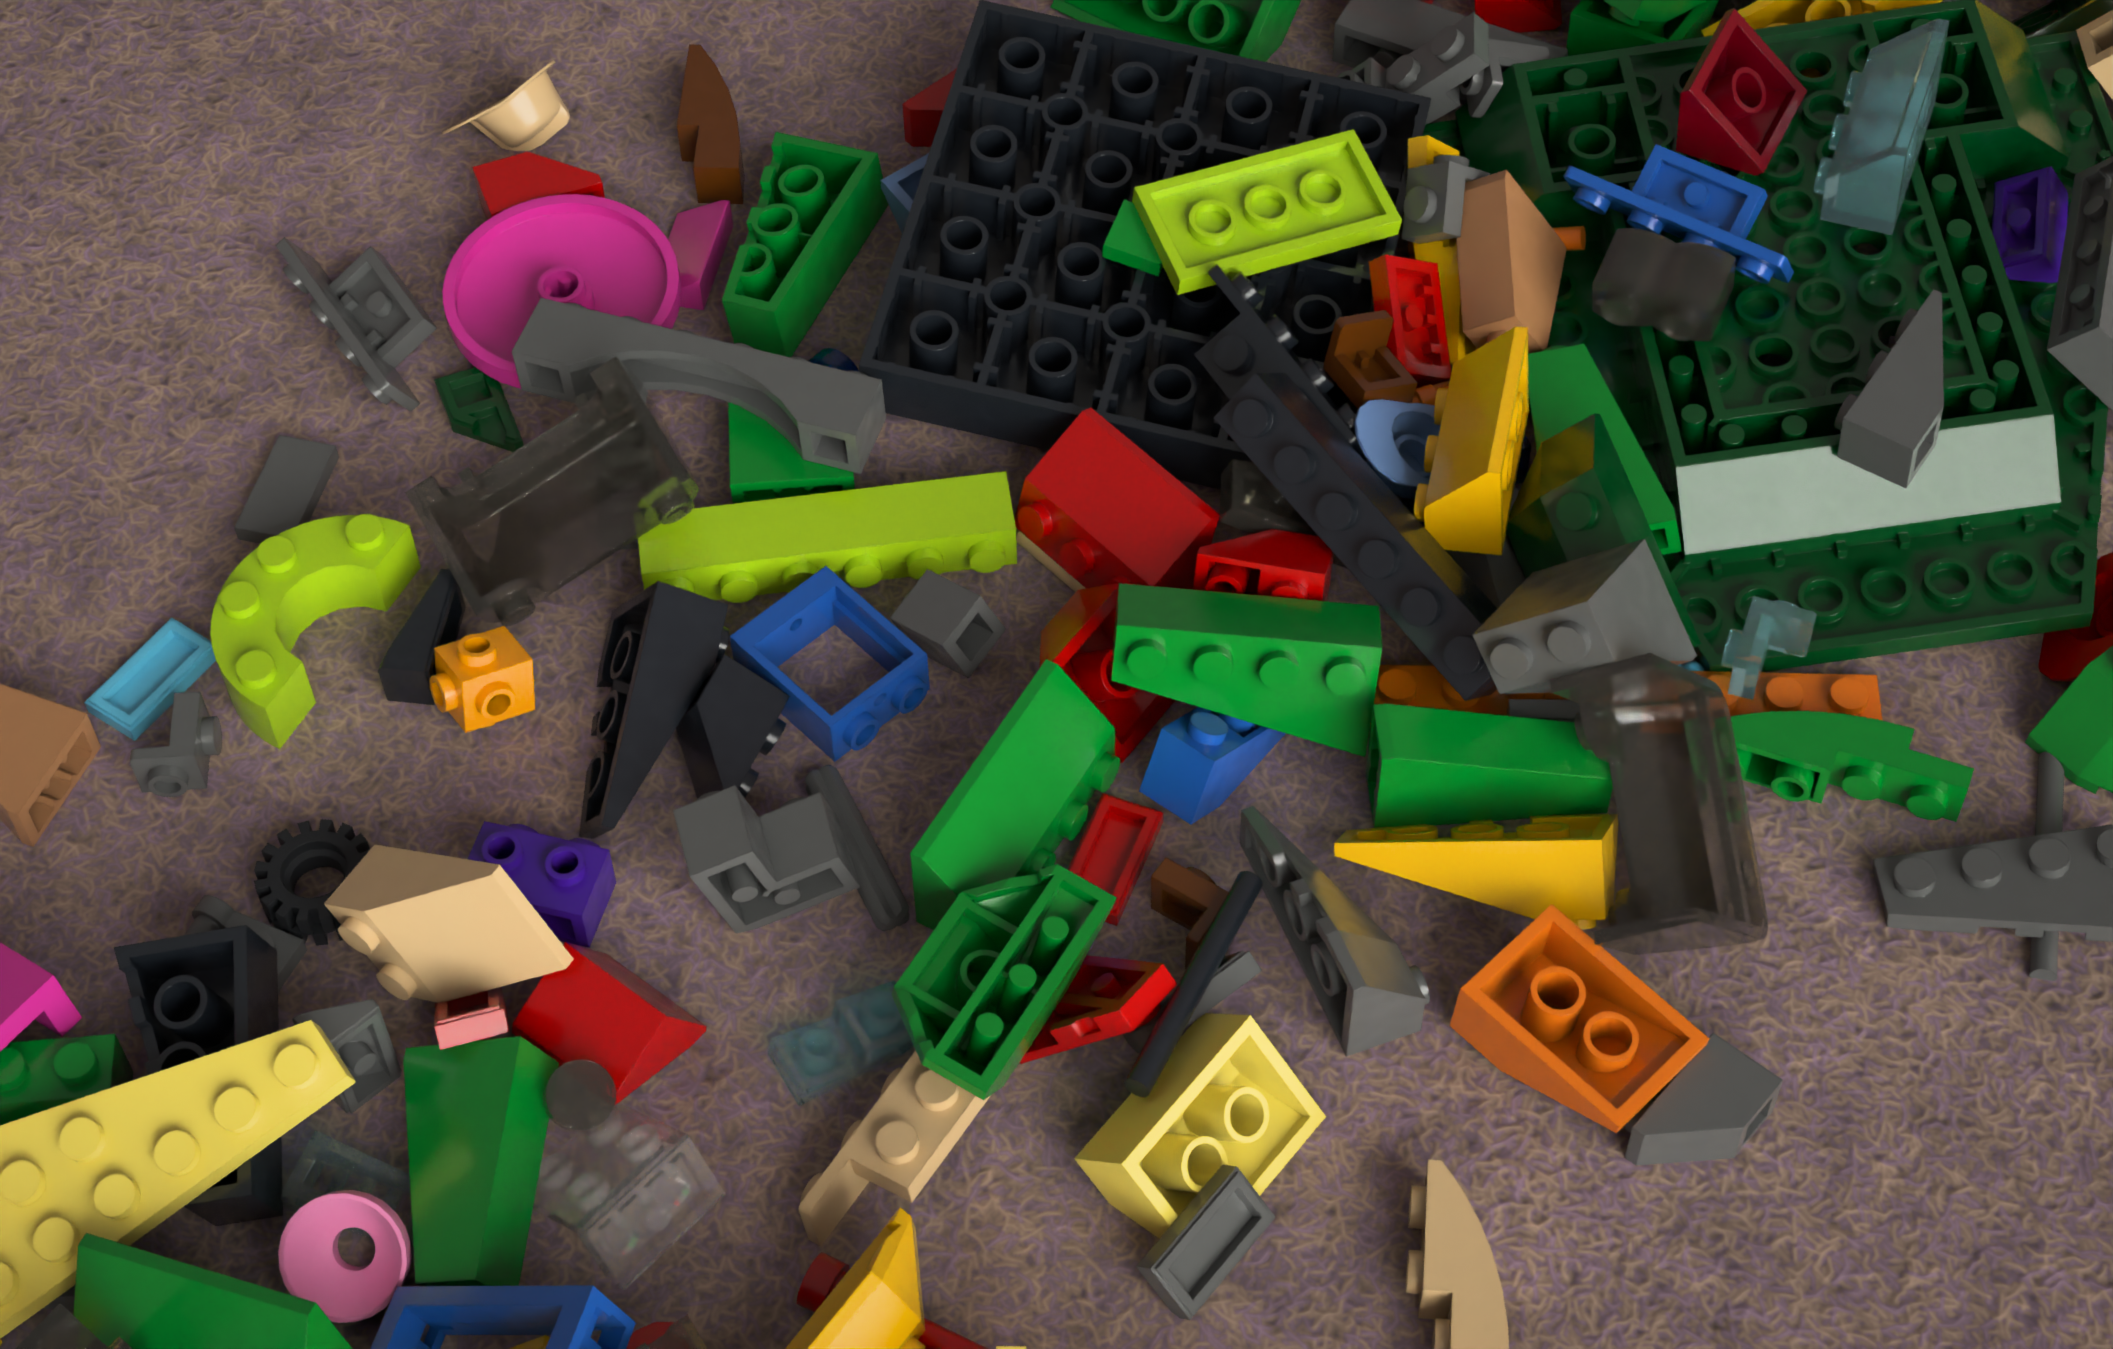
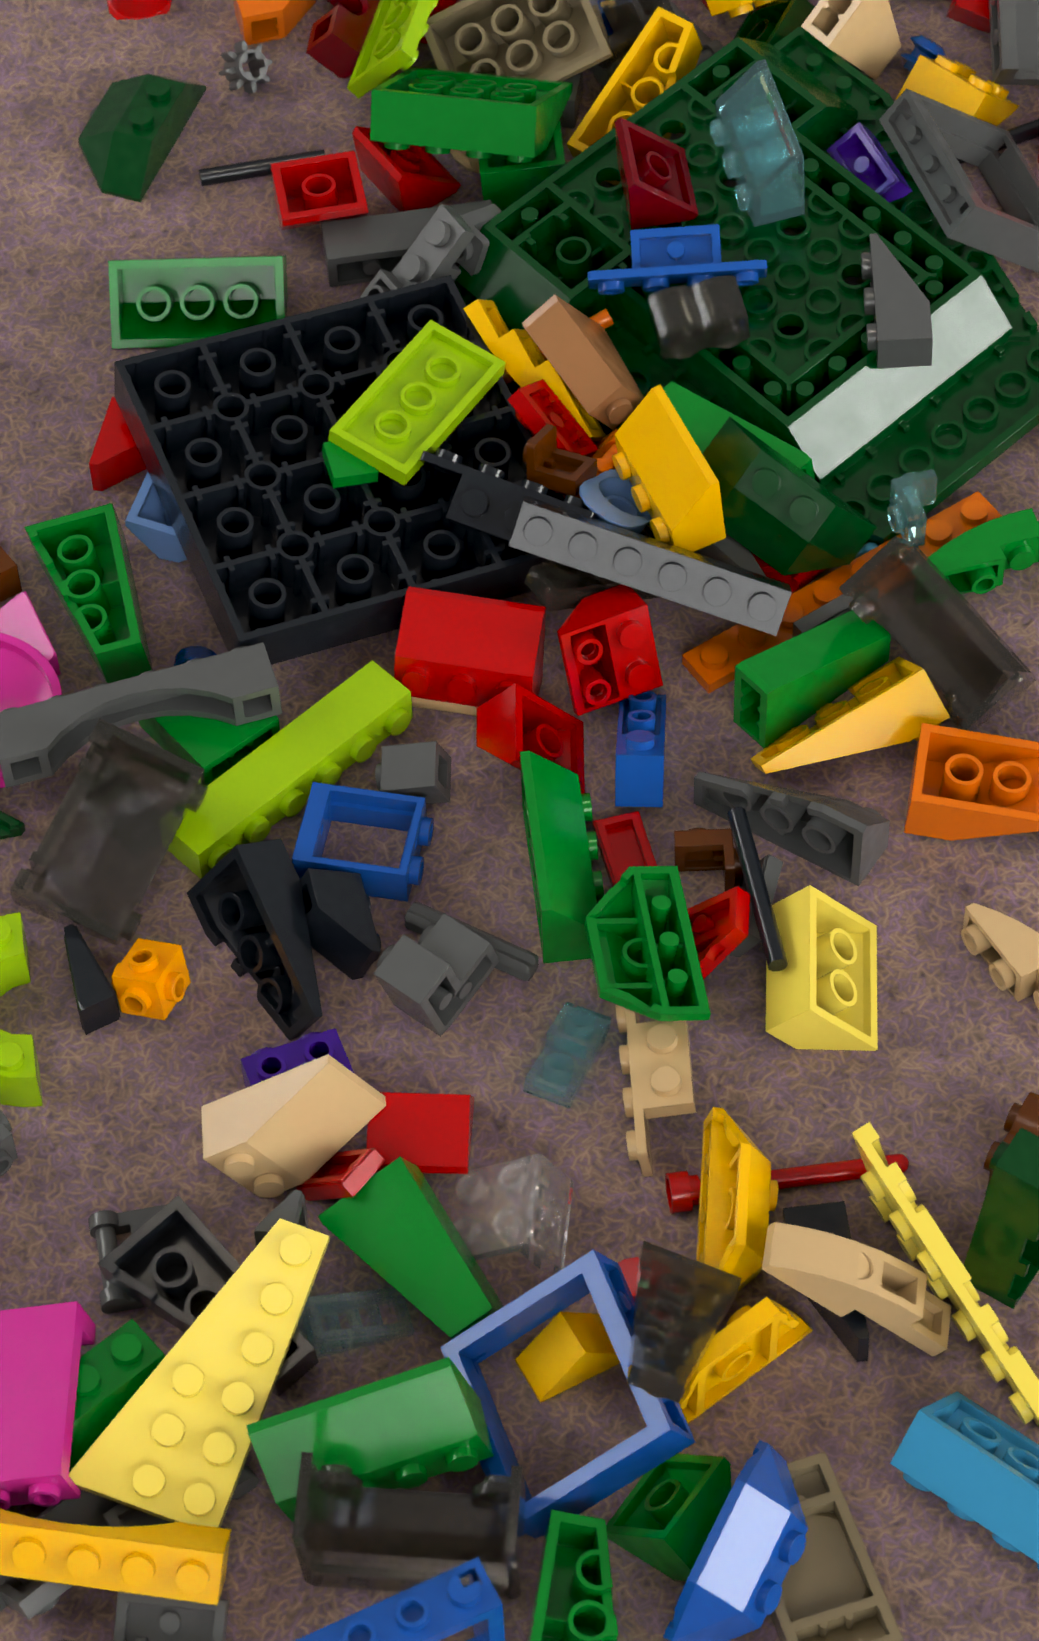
camera: 35 degrees left, 0 degrees up
(293, 859) = (150, 1138): black tyre -> none
(318, 1273) = (412, 1331): bright pink piece -> none
(579, 1095) = (451, 1174): clear smoke tile -> none
(1206, 1242) = (874, 1031): dark grey tile -> none
(1254, 658) = (638, 680): green wedge -> none
(1436, 199) = (515, 337): dark grey bracket -> none
(1582, 619) = (820, 544): dark grey slope -> none

